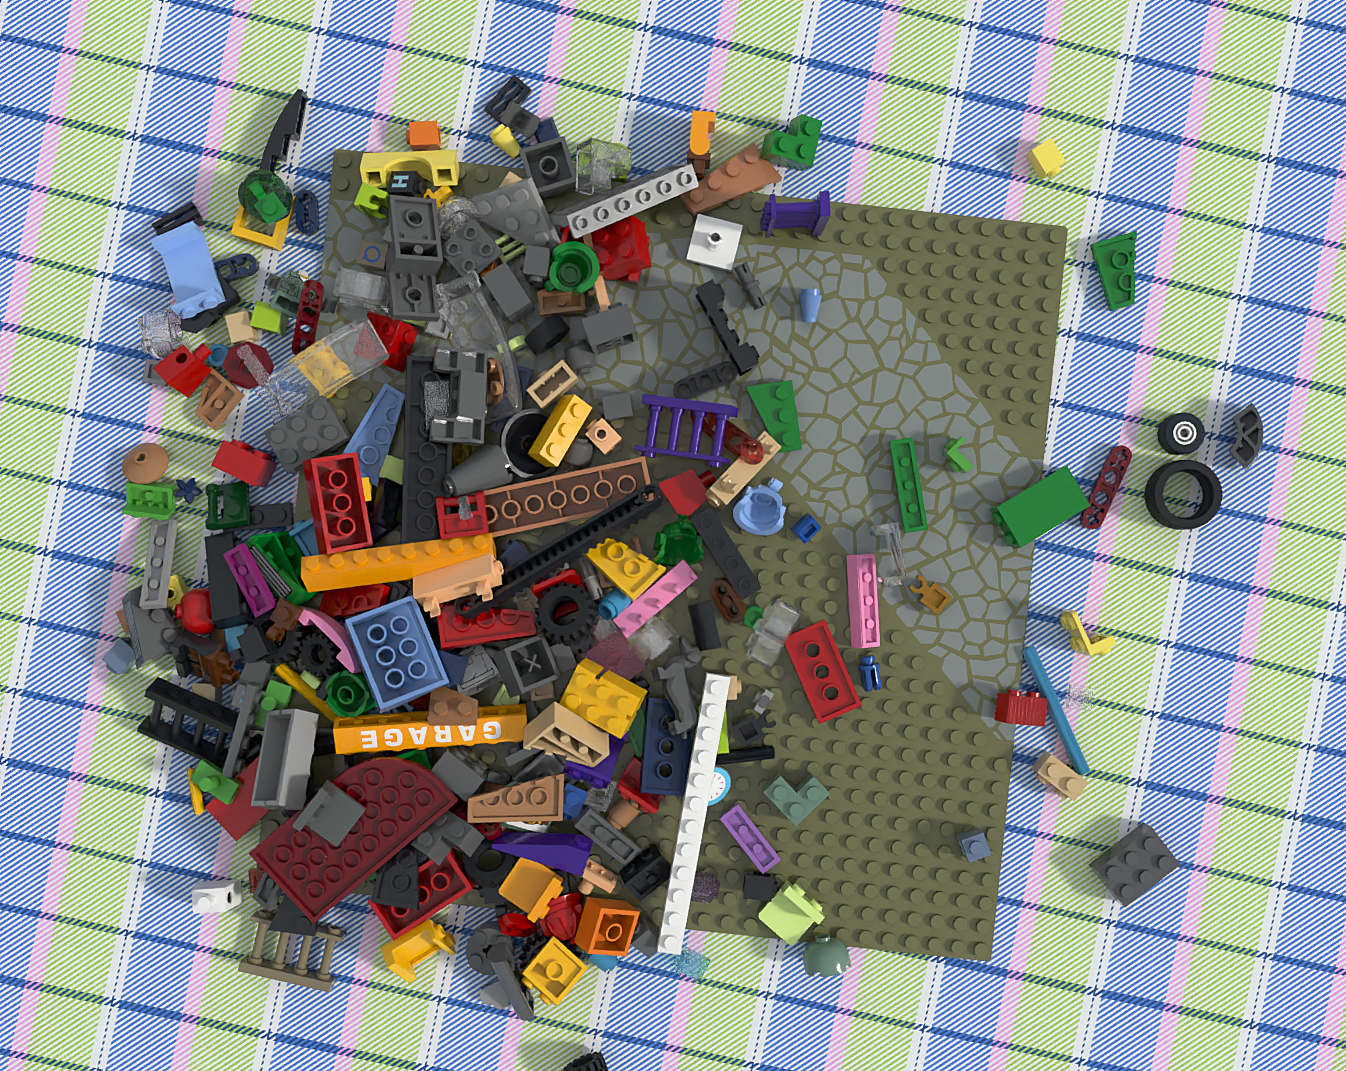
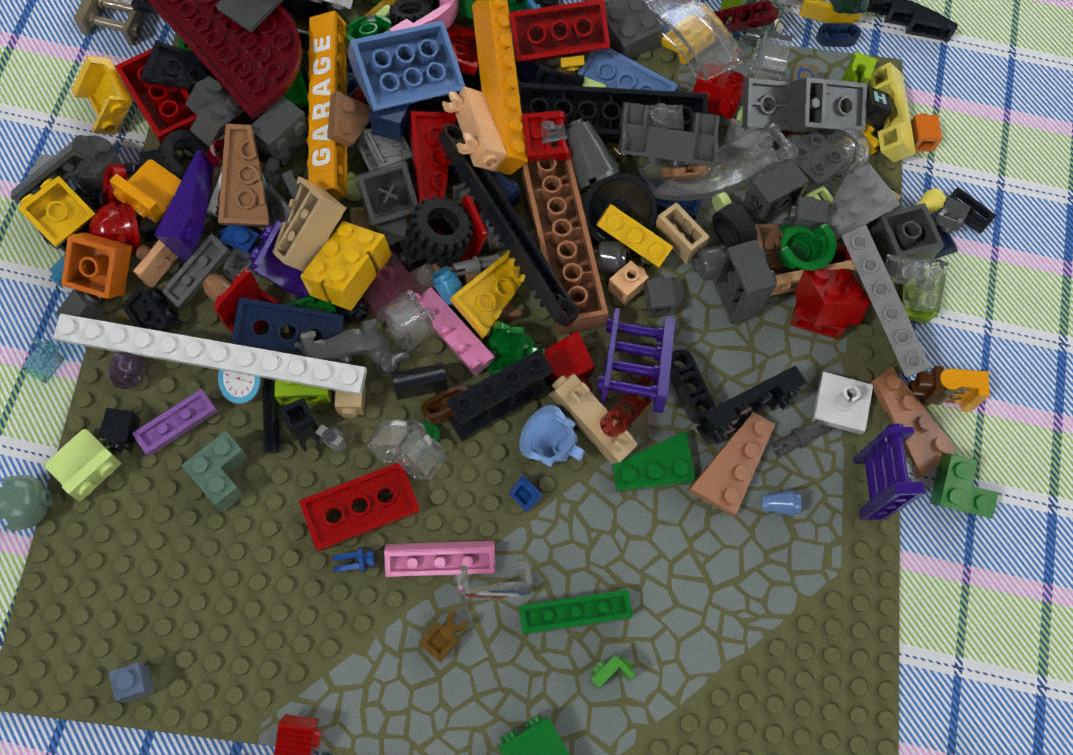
camera: 80 degrees right, 20 degrees down
(782, 347) = (731, 471): none -> nougat wing

